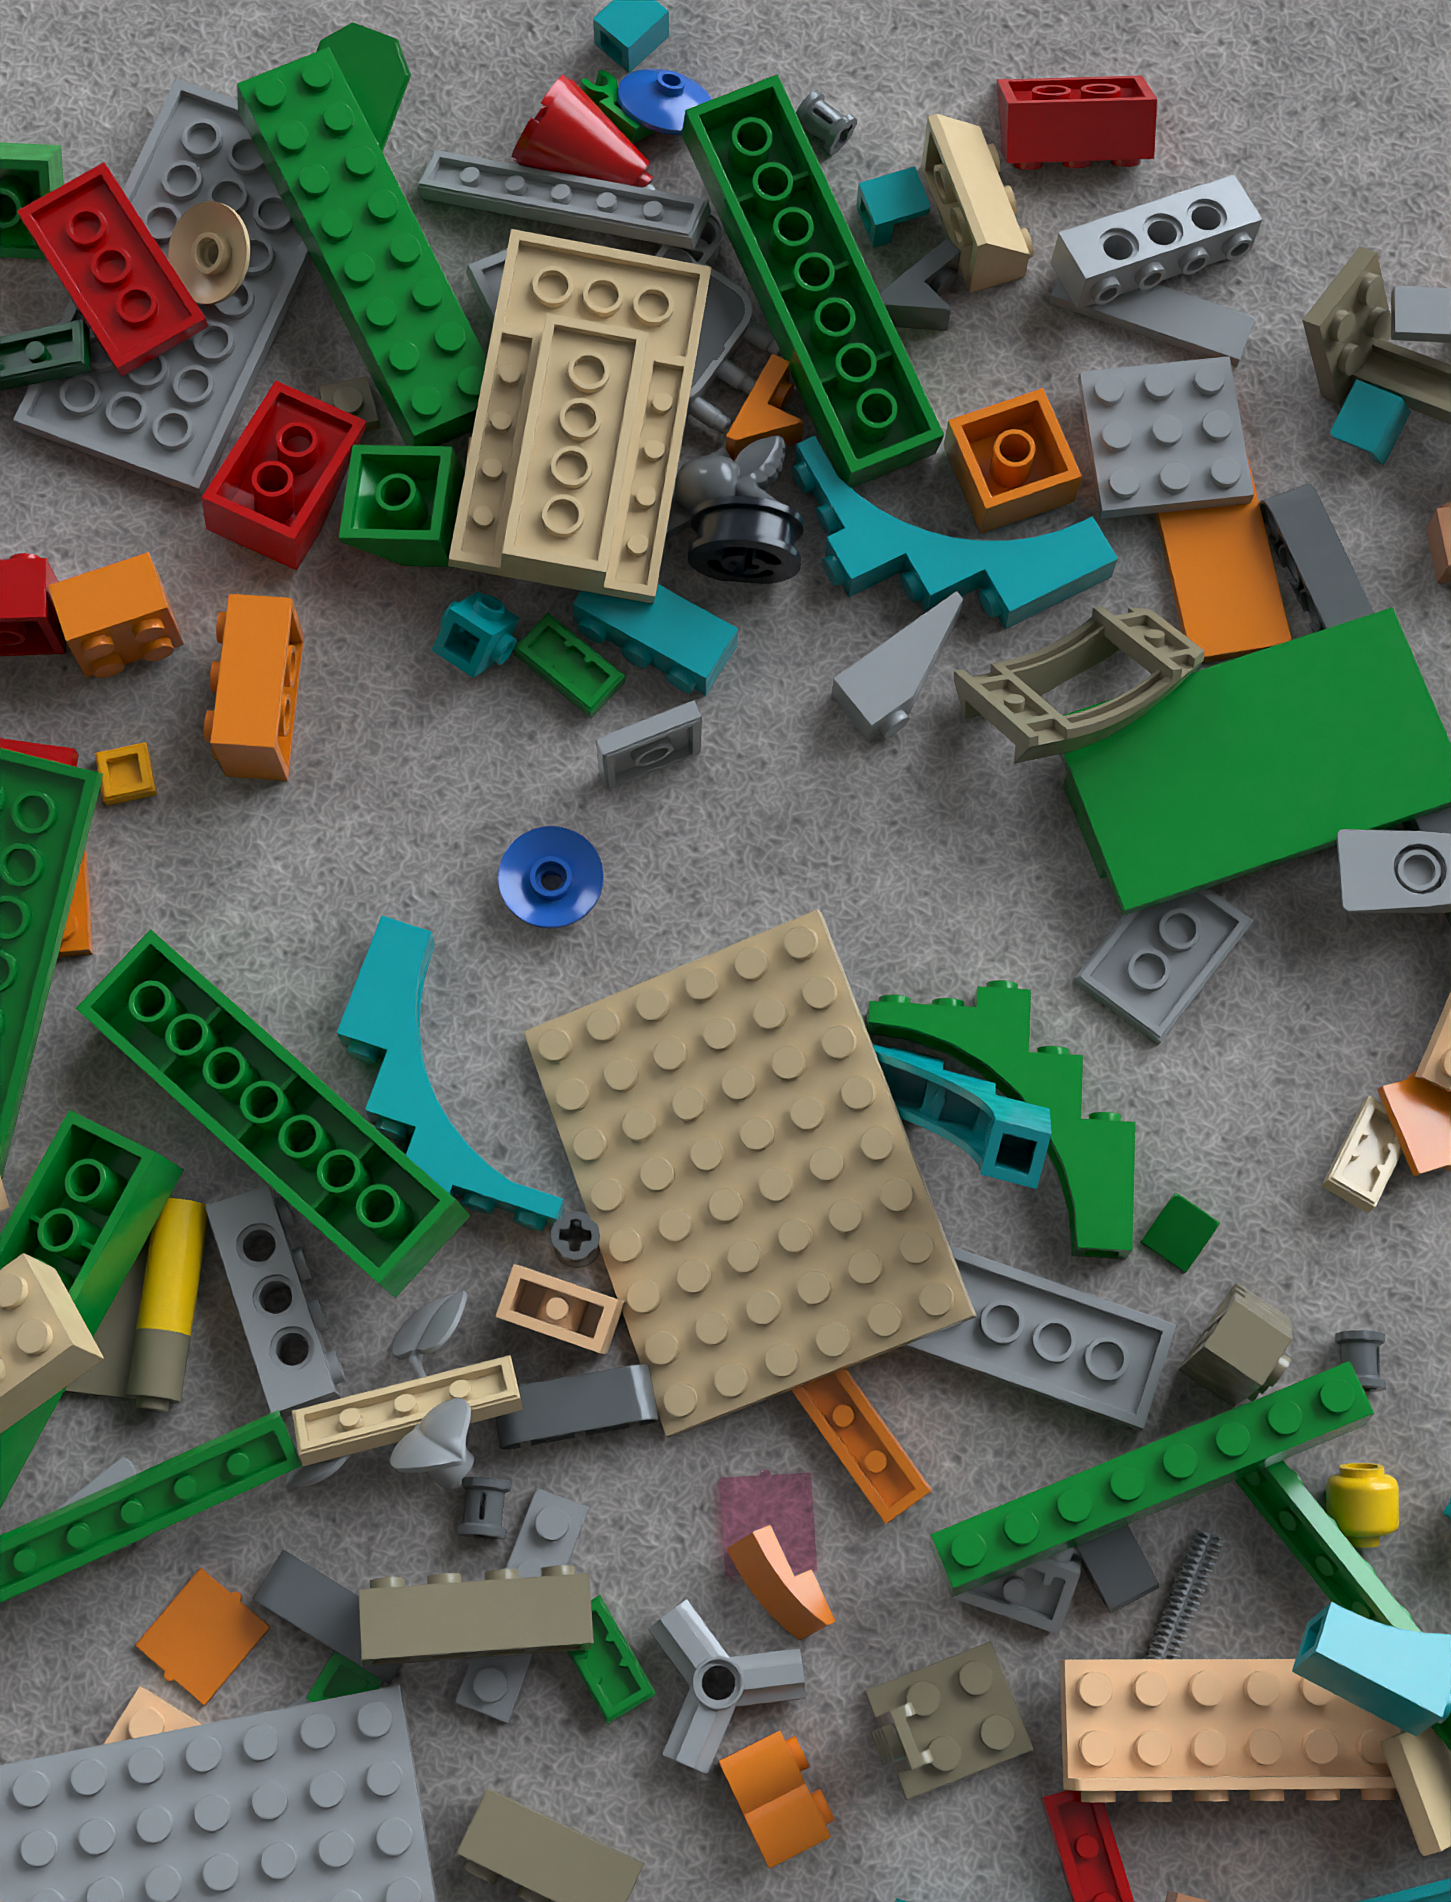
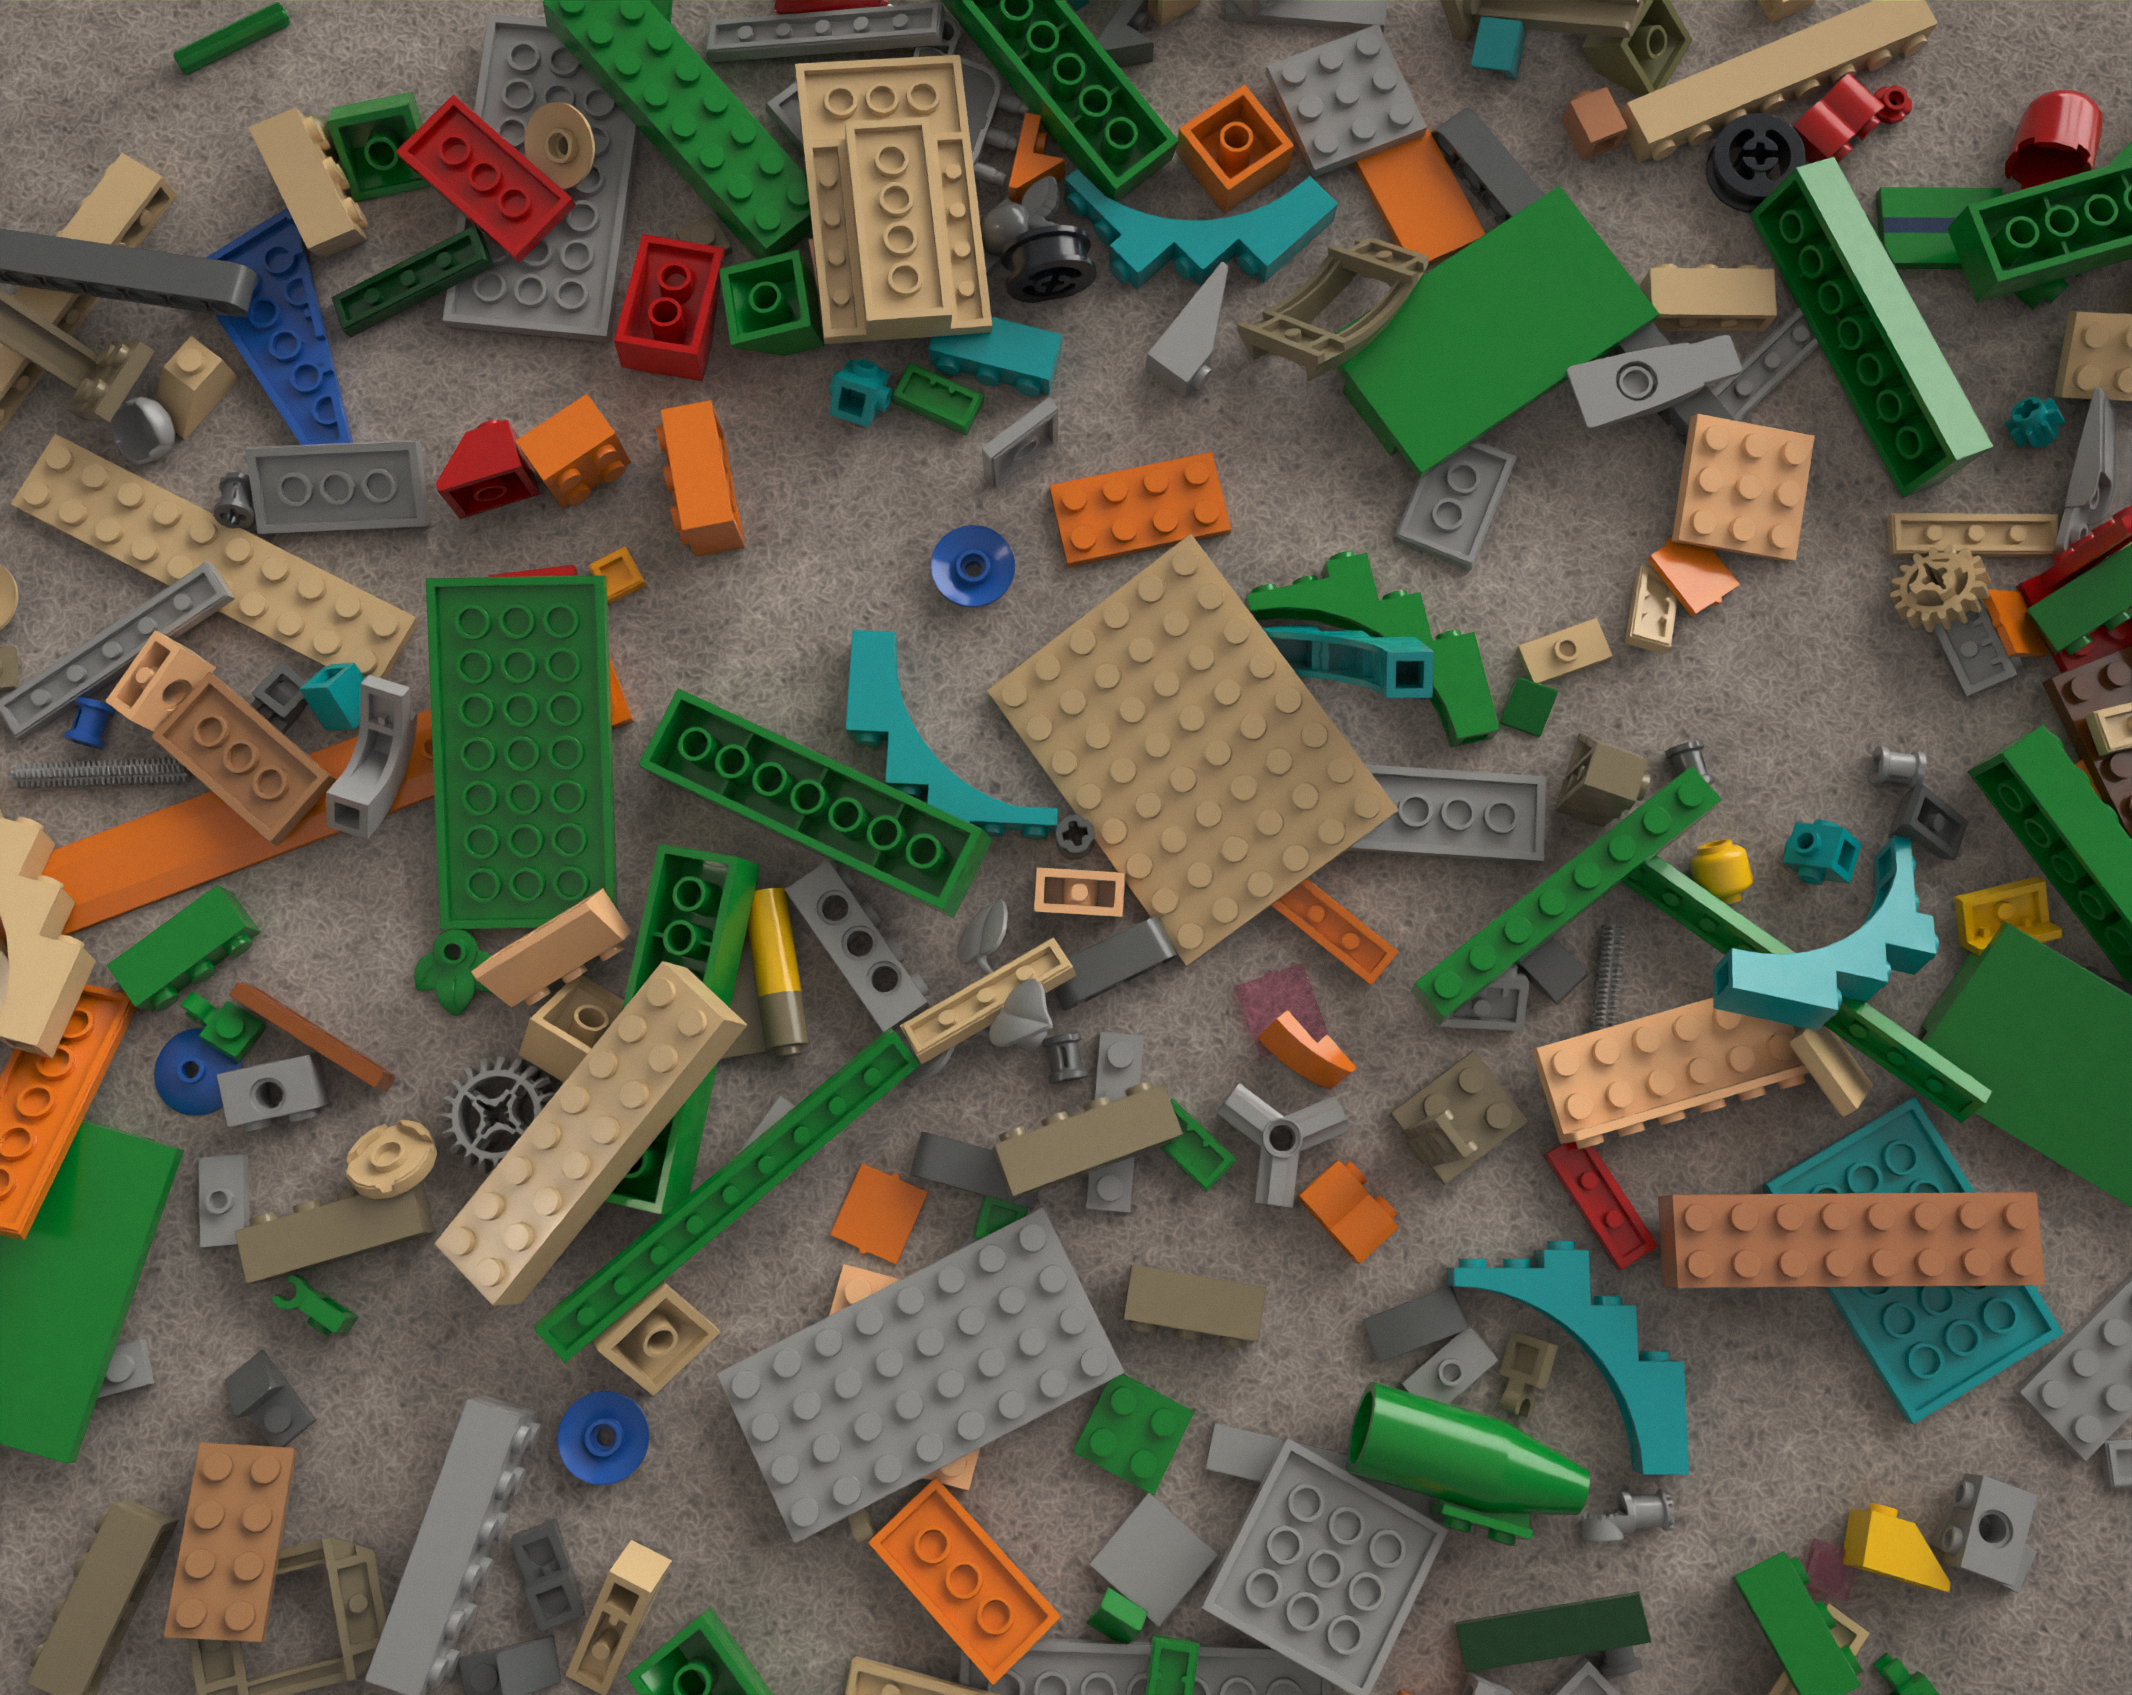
camera: 15 degrees left, 5 degrees up
(773, 862) = (1139, 509): none -> orange plate
(1244, 1177) = (1564, 652): none -> tan plate

